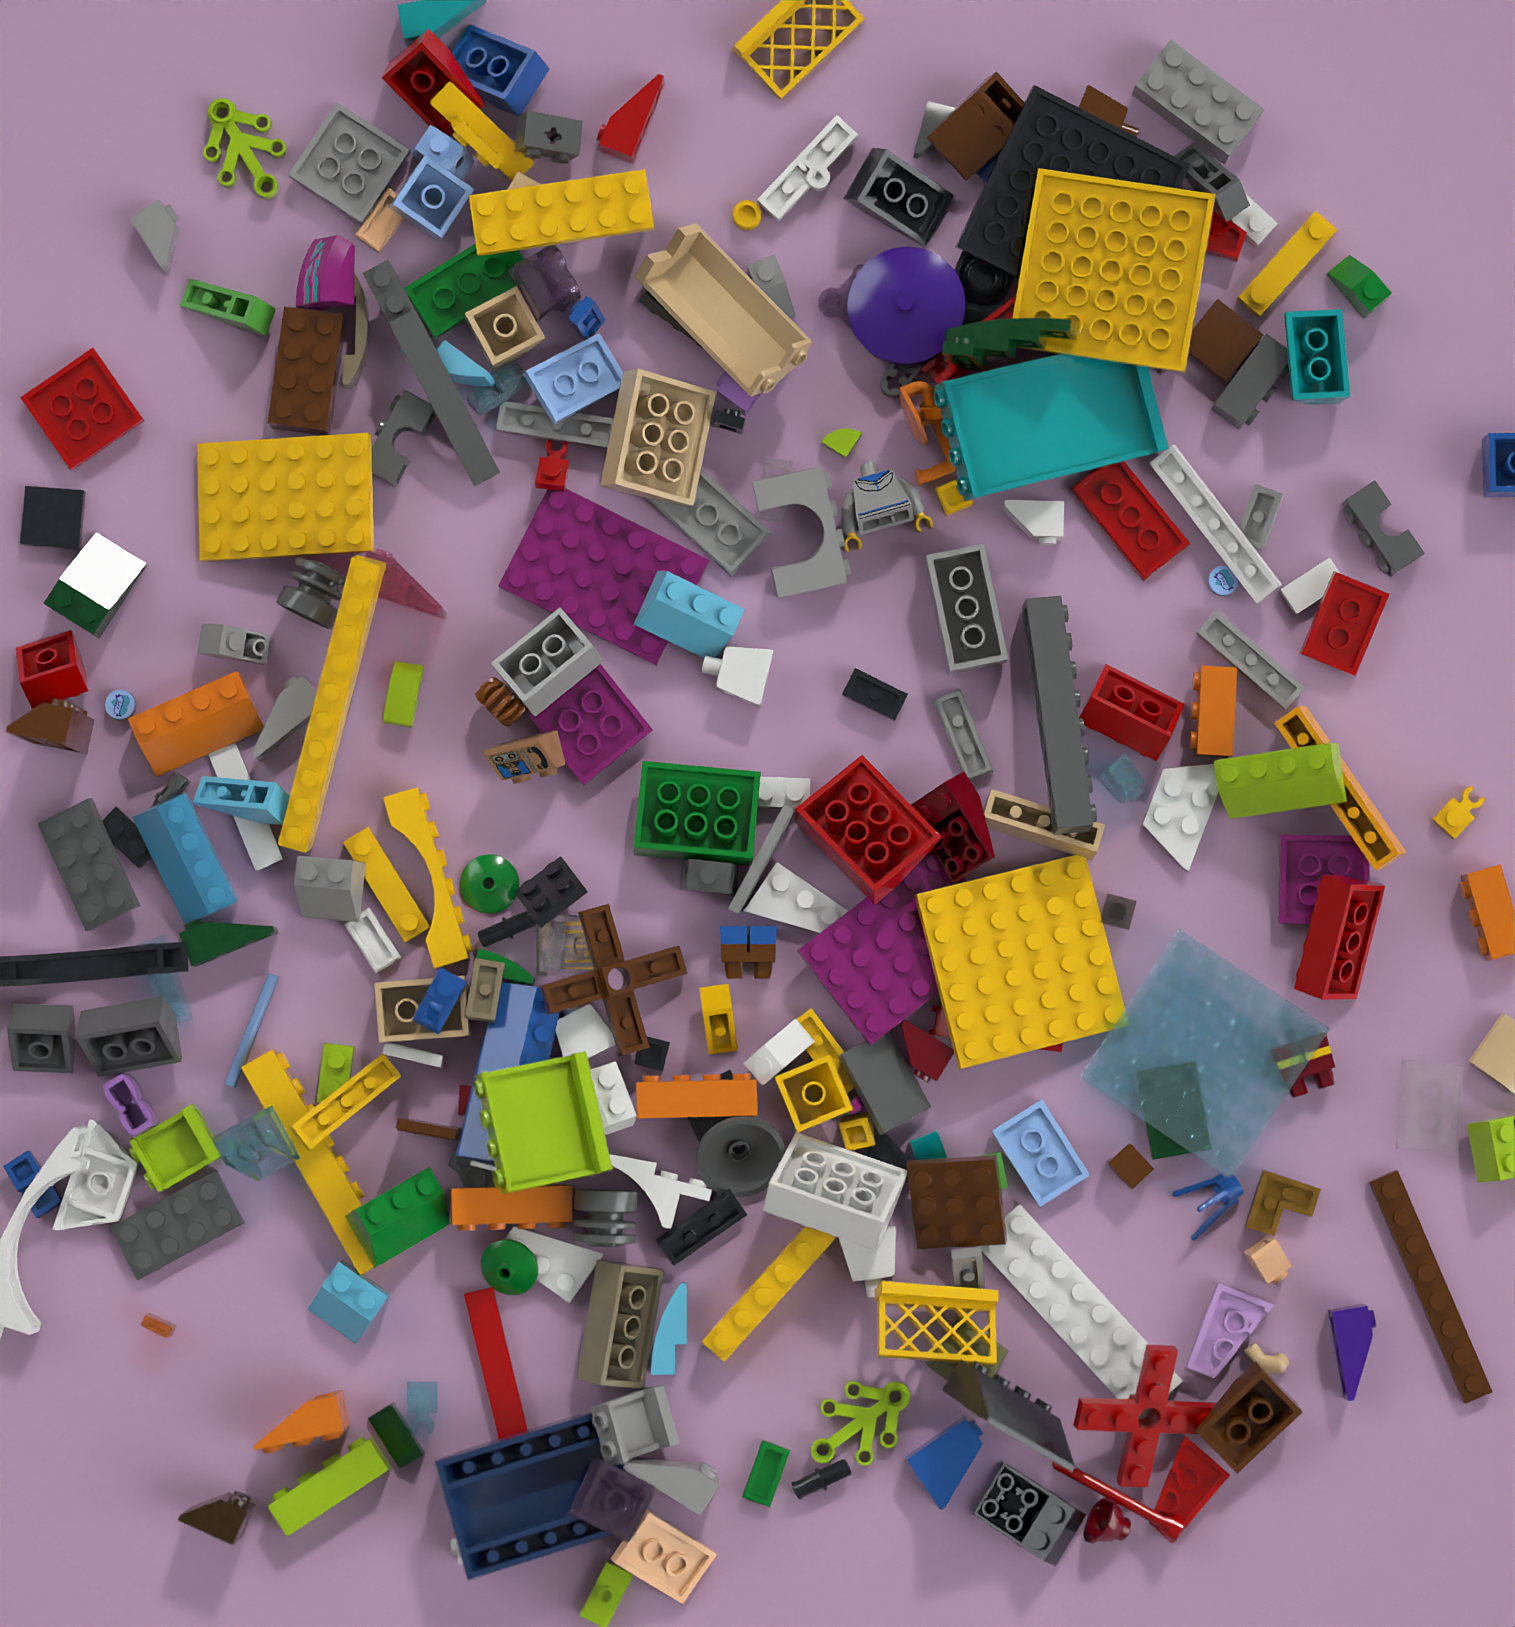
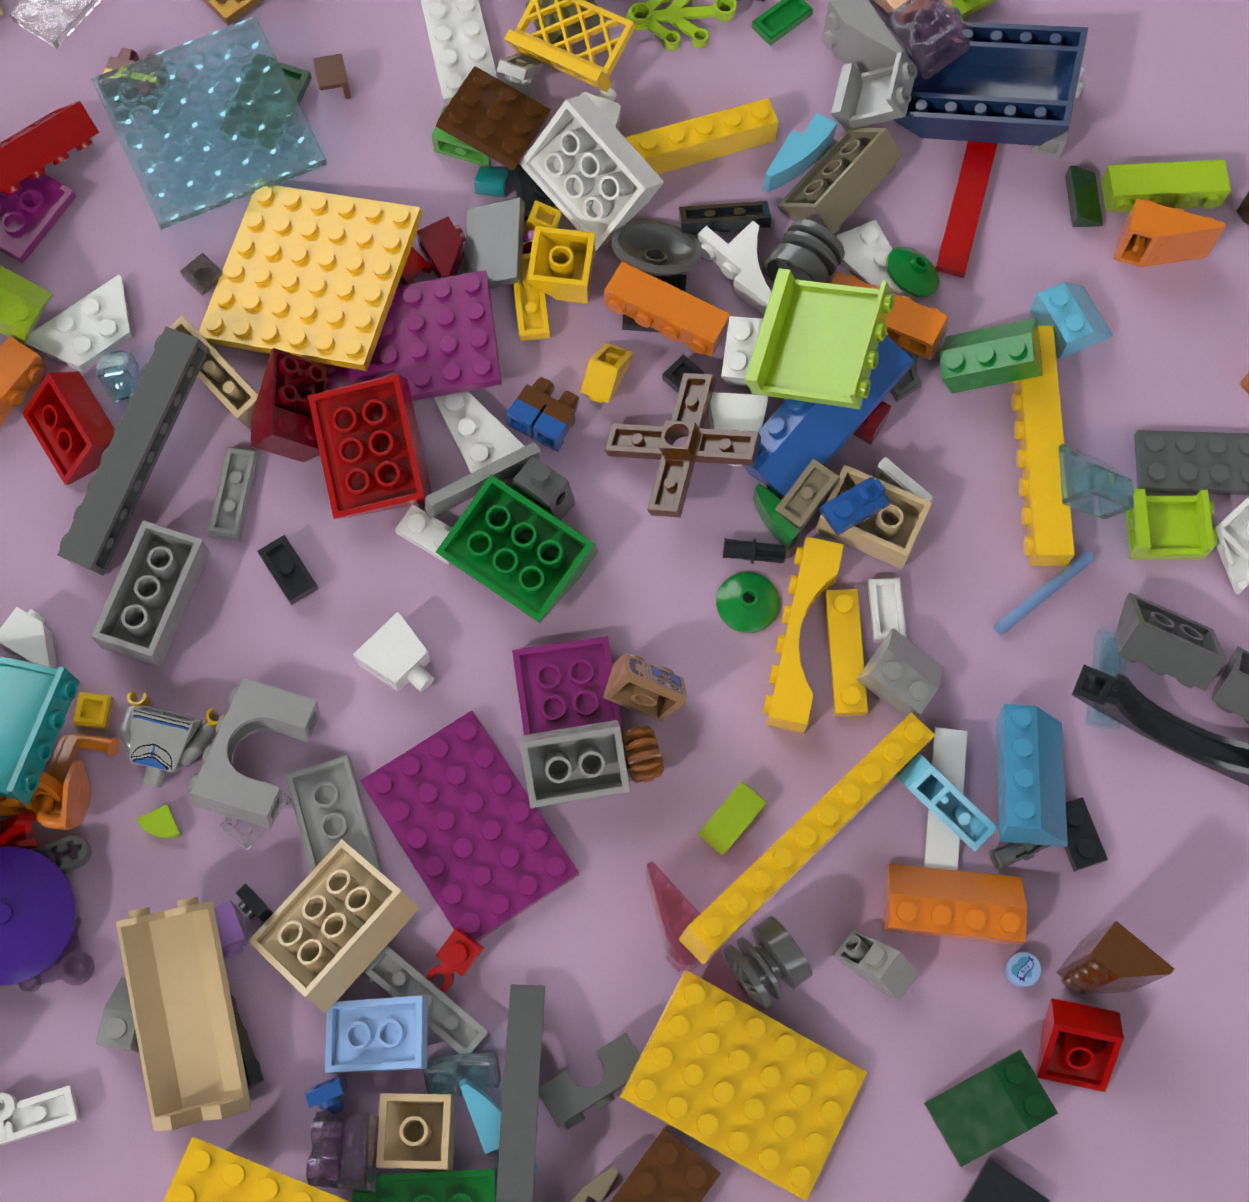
camera: 150 degrees left, 15 degrees down
(89, 864) = (1131, 827): dark grey plate -> none
(127, 1097) = (1198, 584): medium lavender brick -> none
(215, 939) = (1031, 684): dark green slope -> none
(288, 715) = (847, 864): light grey slope -> none
(335, 1068) = (984, 512): lime plate -> none
(345, 1102) = (990, 473): yellow plate -> none
(422, 1399) = (1047, 211): clear light blue plate -> none
(428, 1128) = (924, 411): reddish brown tile -> none
(550, 892) = (695, 553): black plate -> none
(562, 948) = (711, 503): clear slope -> none
(688, 615) = (411, 733): medium azure slope -> none
(746, 215) = (100, 1112): yellow tile -> none
(779, 1052) = (571, 311): white slope -> none
(1040, 1152) = (399, 127): light blue plate -> none
(1225, 1190) = (270, 22): blue plant -> none

